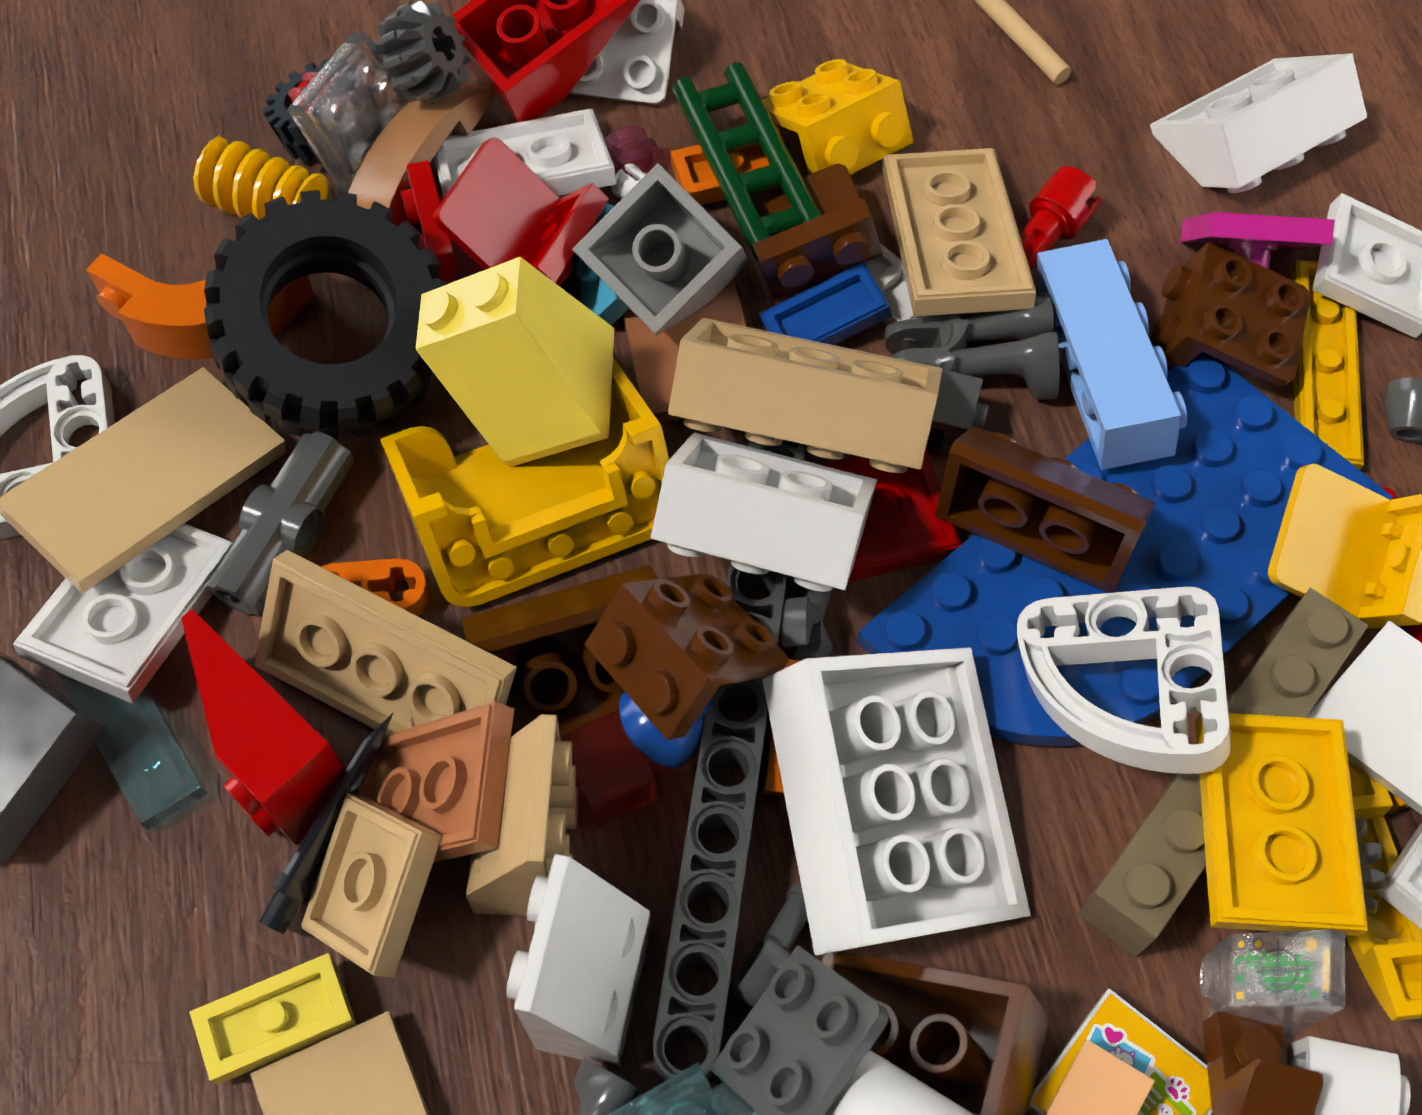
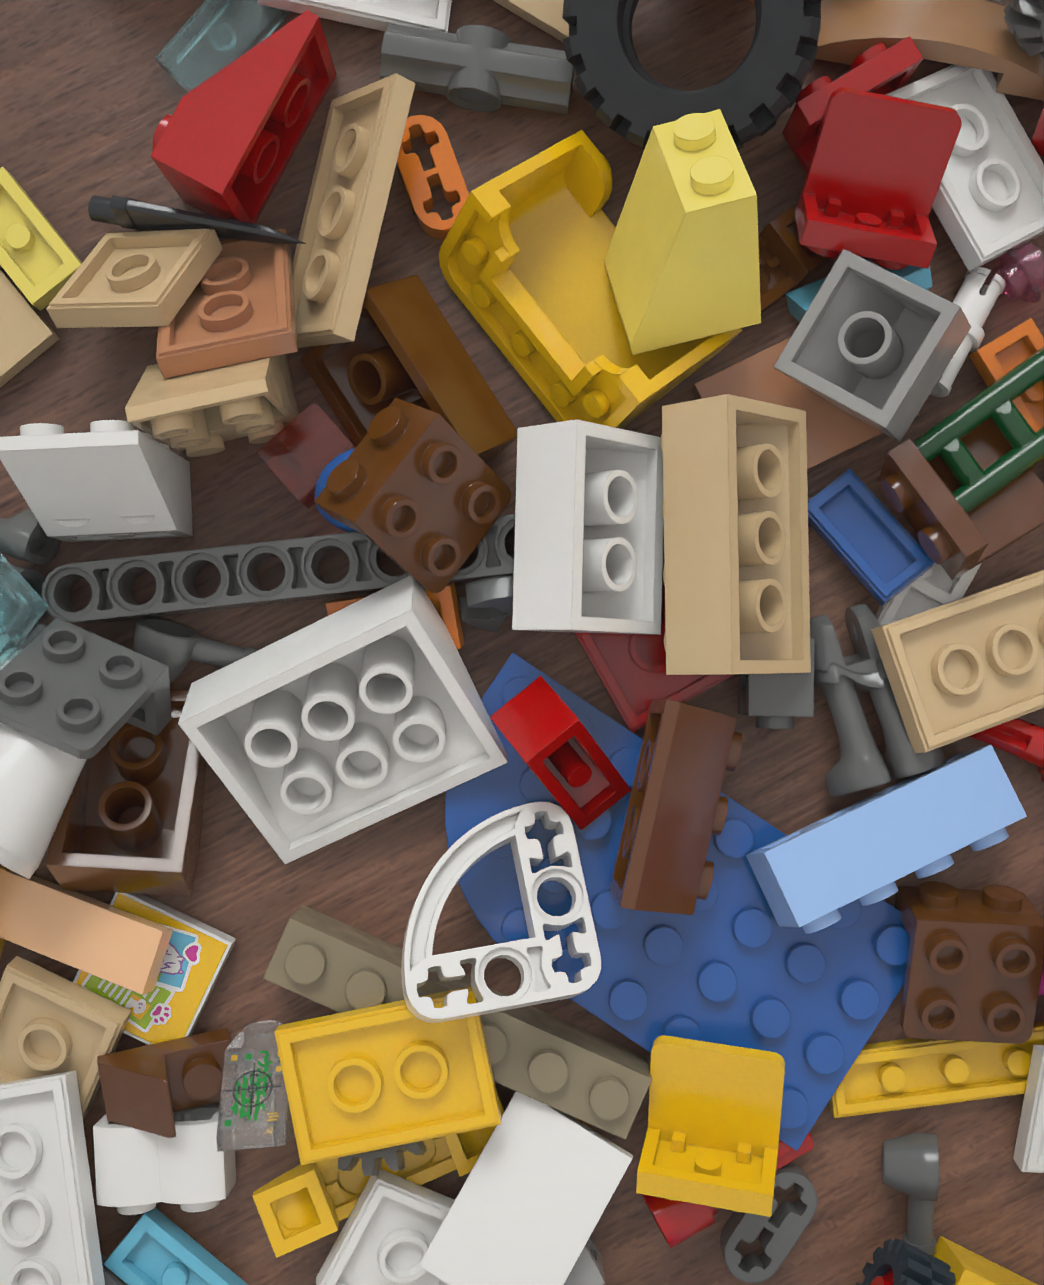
camera: 75 degrees right, 25 degrees up
(967, 592) = (560, 752): none -> red slope

